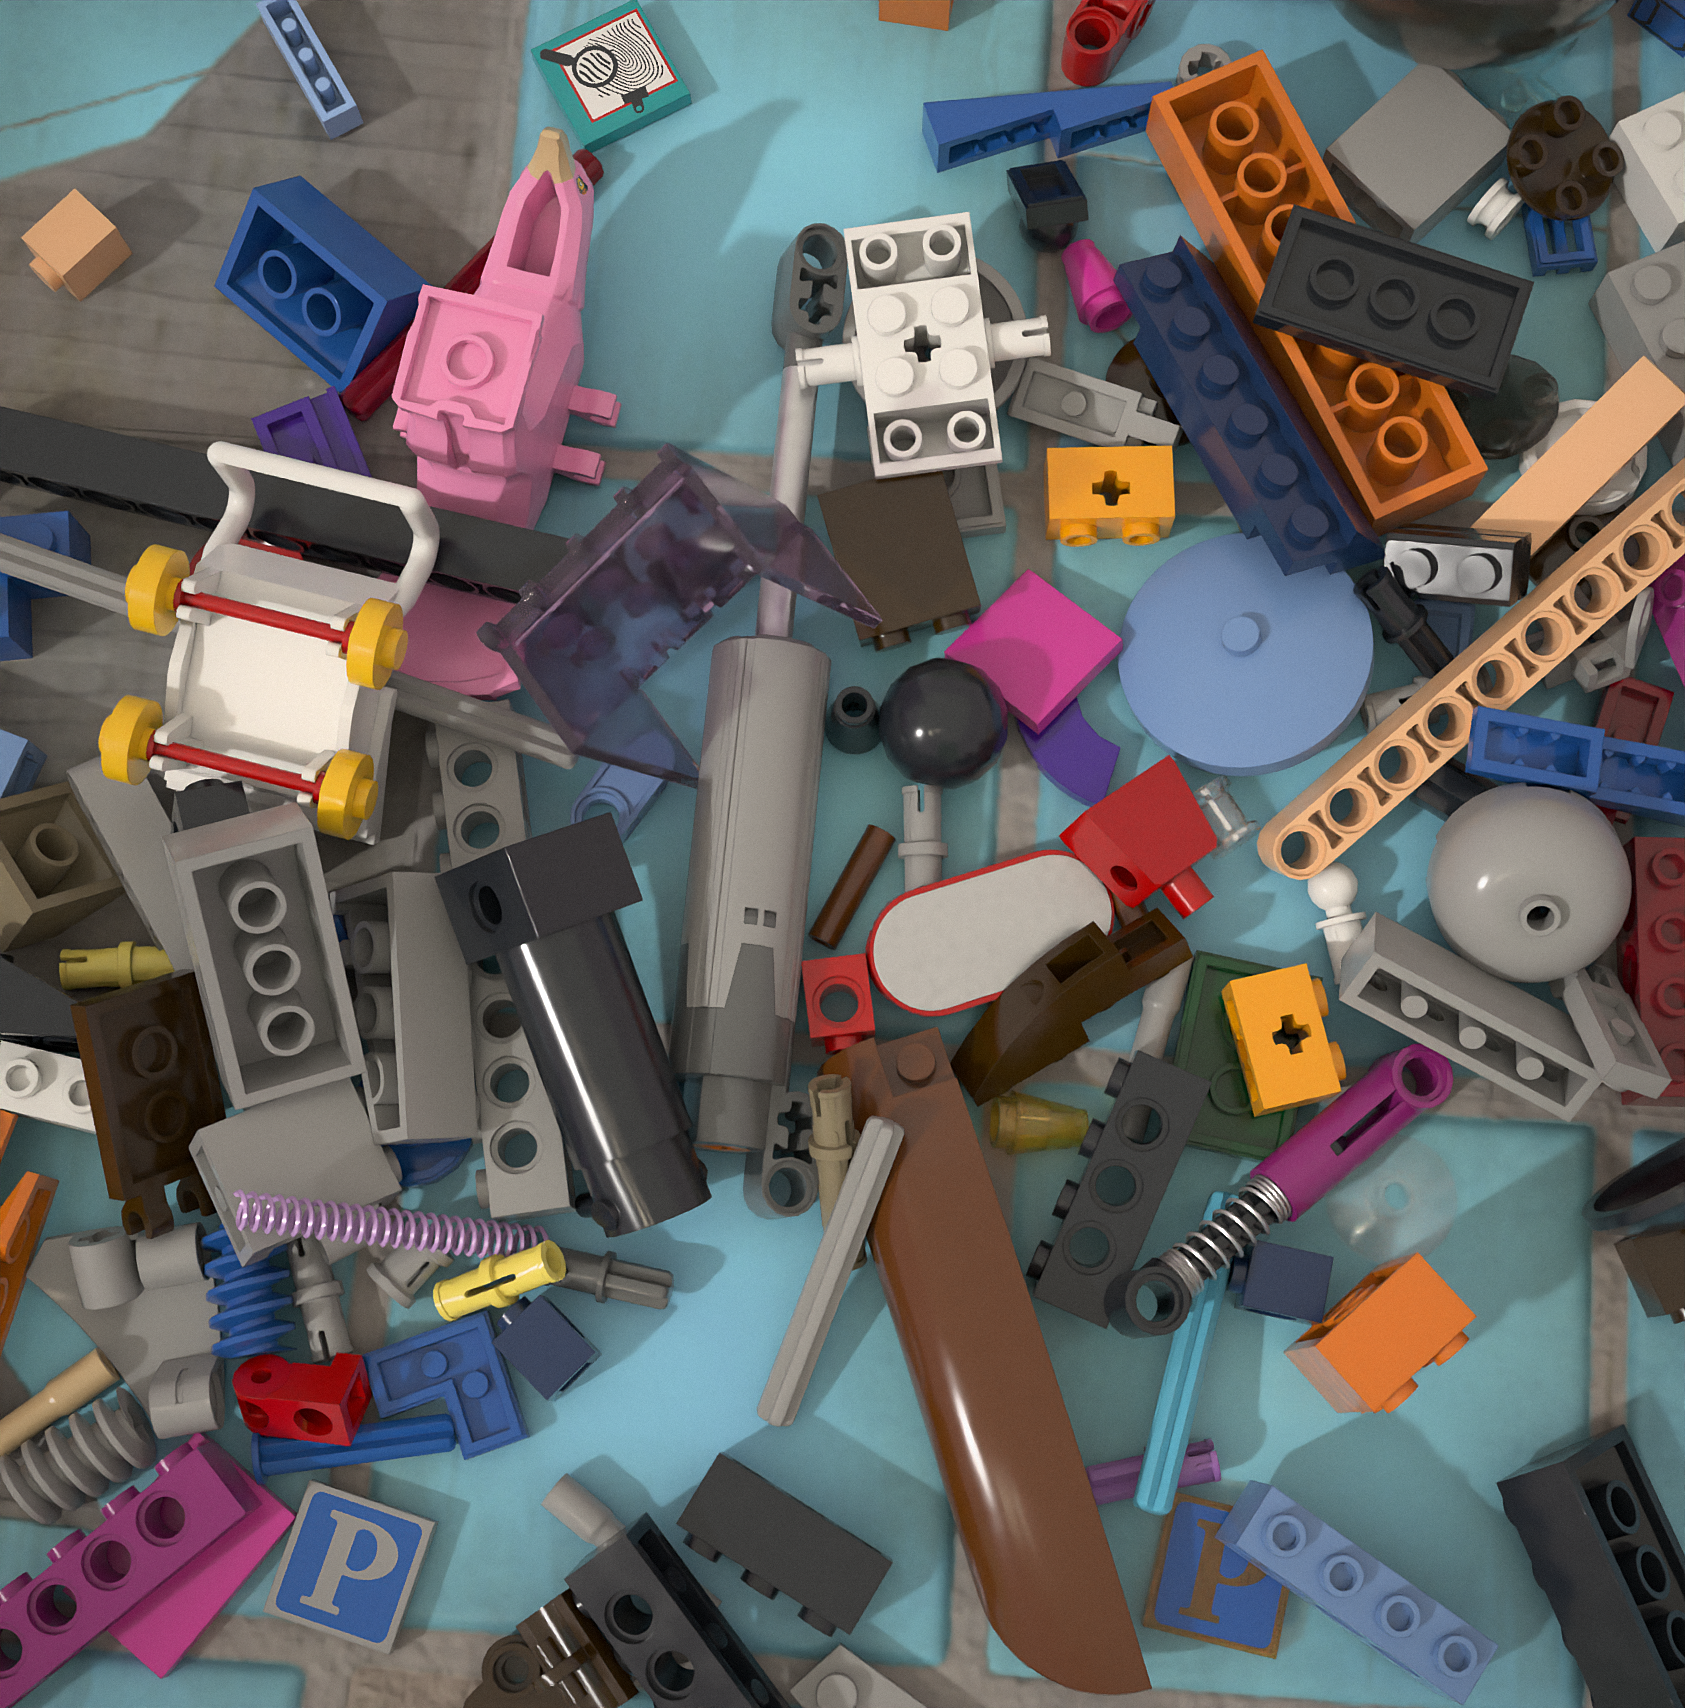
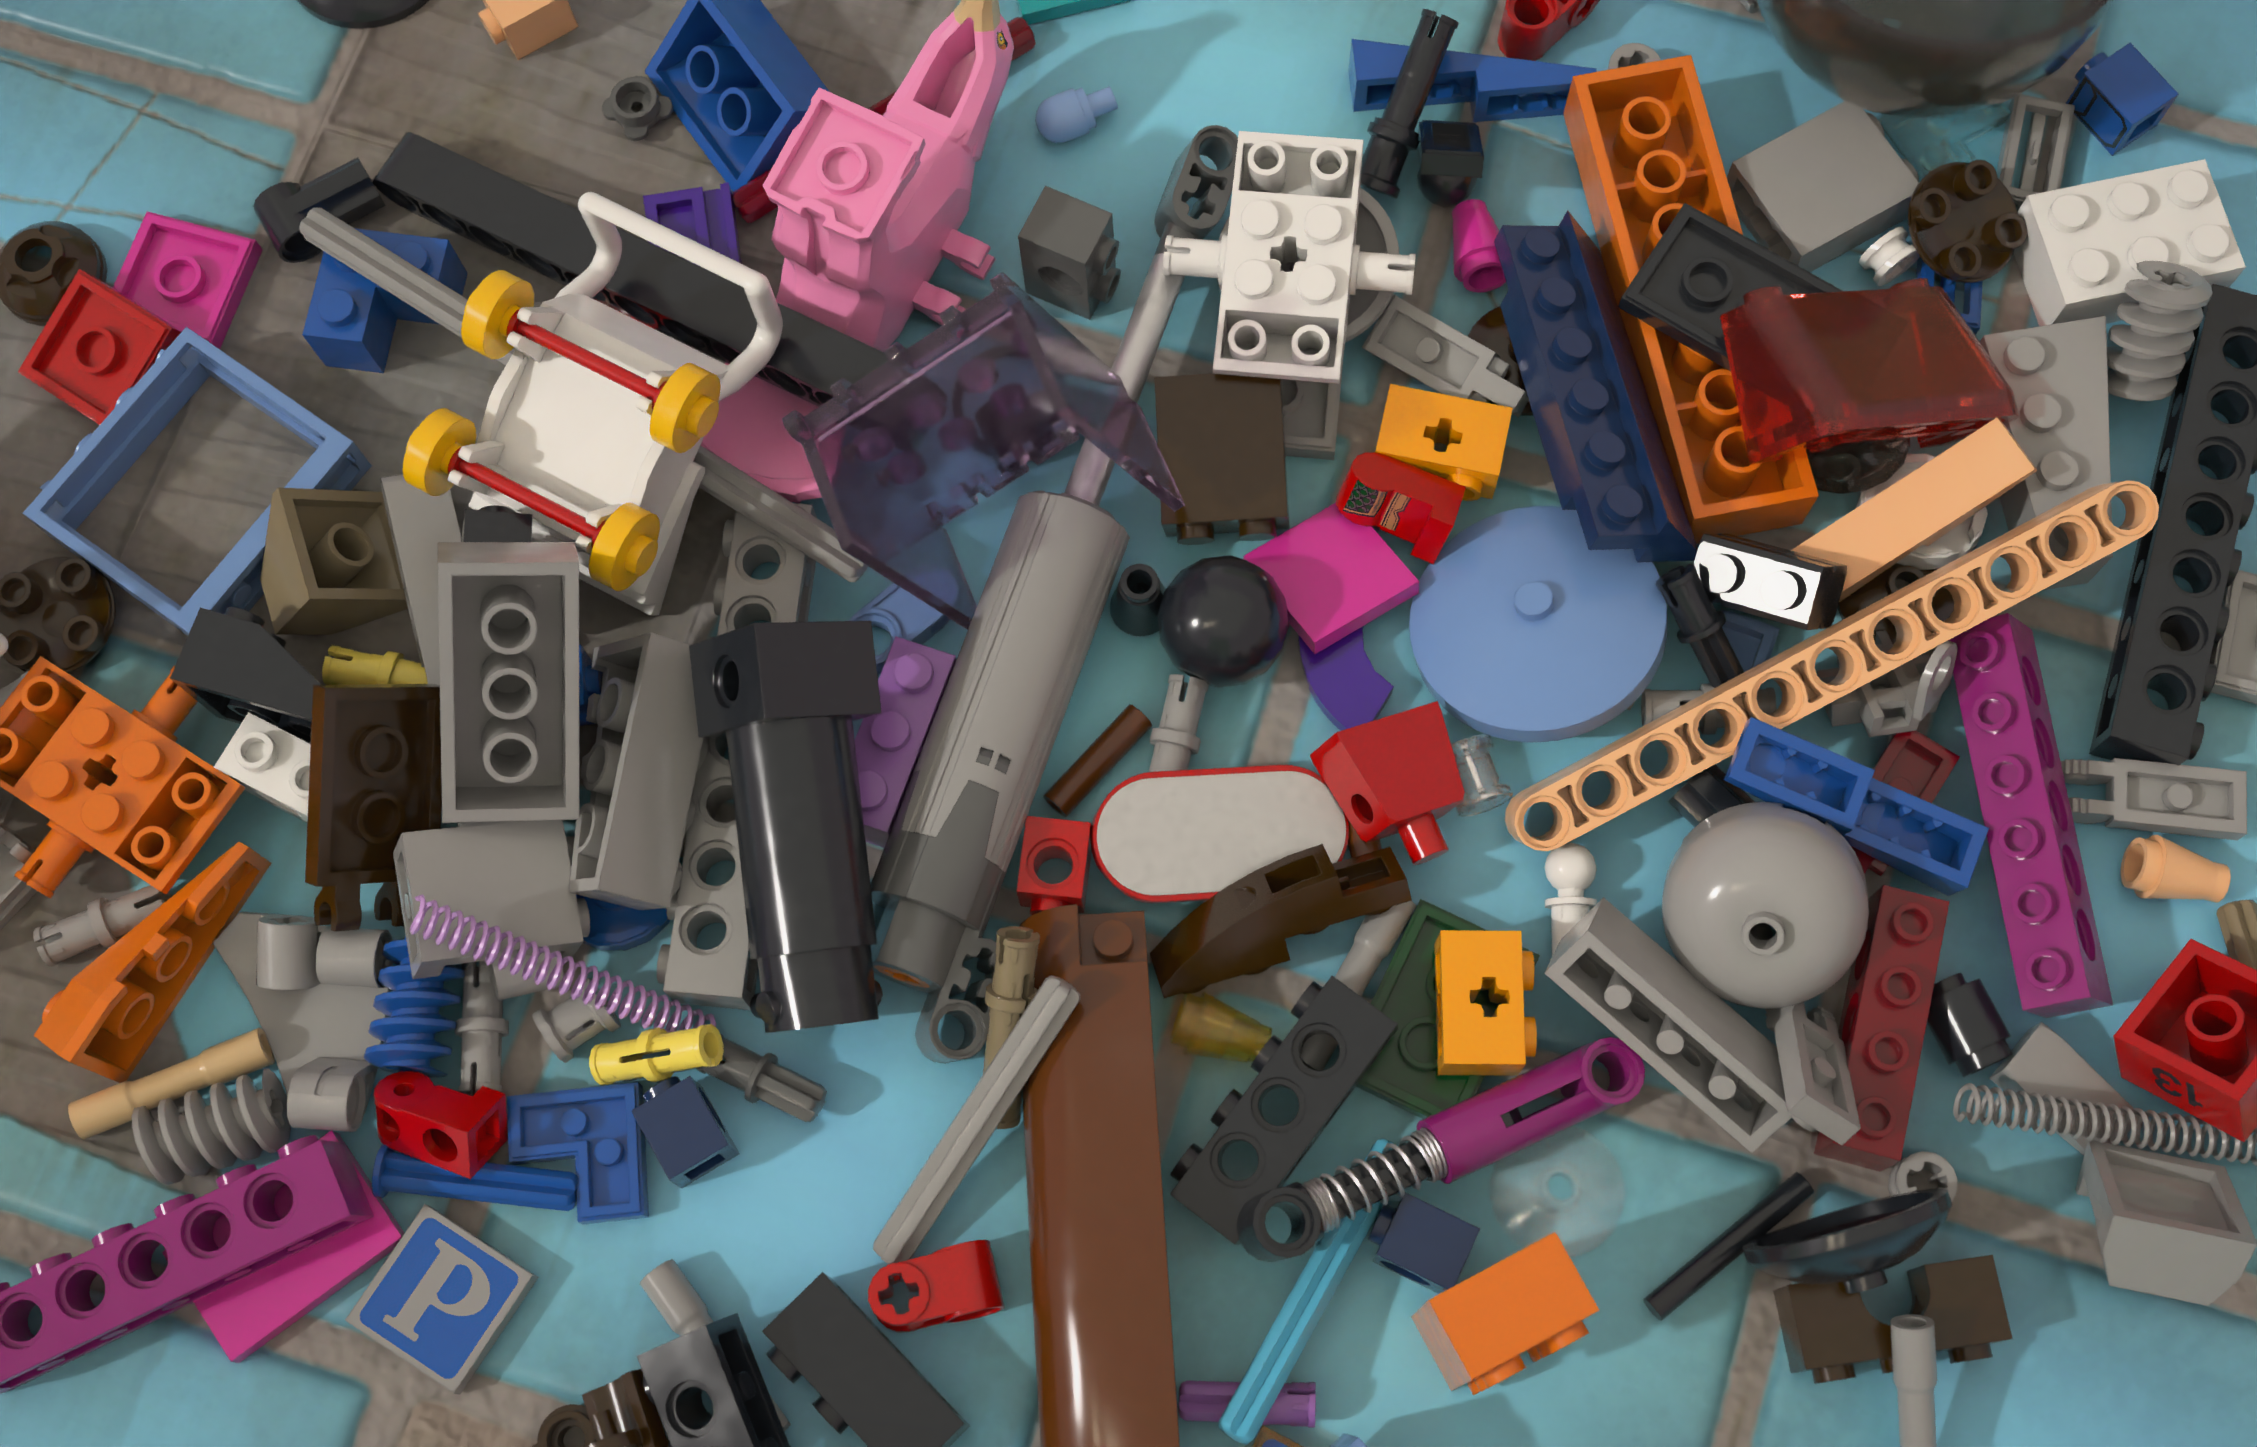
camera: 15 degrees right, 5 degrees down
(208, 312) = (632, 93): none -> dark grey plate
(653, 927) = (893, 740): none -> medium lavender brick
(660, 236) = (1072, 113): none -> light blue cylinder
(699, 385) = (1069, 253): none -> dark grey brick
(842, 1431) = (951, 1283): none -> red piece
(988, 190) = (1394, 132): none -> black pin
(1086, 563) = (1401, 502): none -> red leg
(1499, 336) = (1859, 369): none -> clear red windscreen
(1563, 1213) = (1728, 1246): none -> black bar
(1631, 69) = (2040, 109): none -> light grey tile

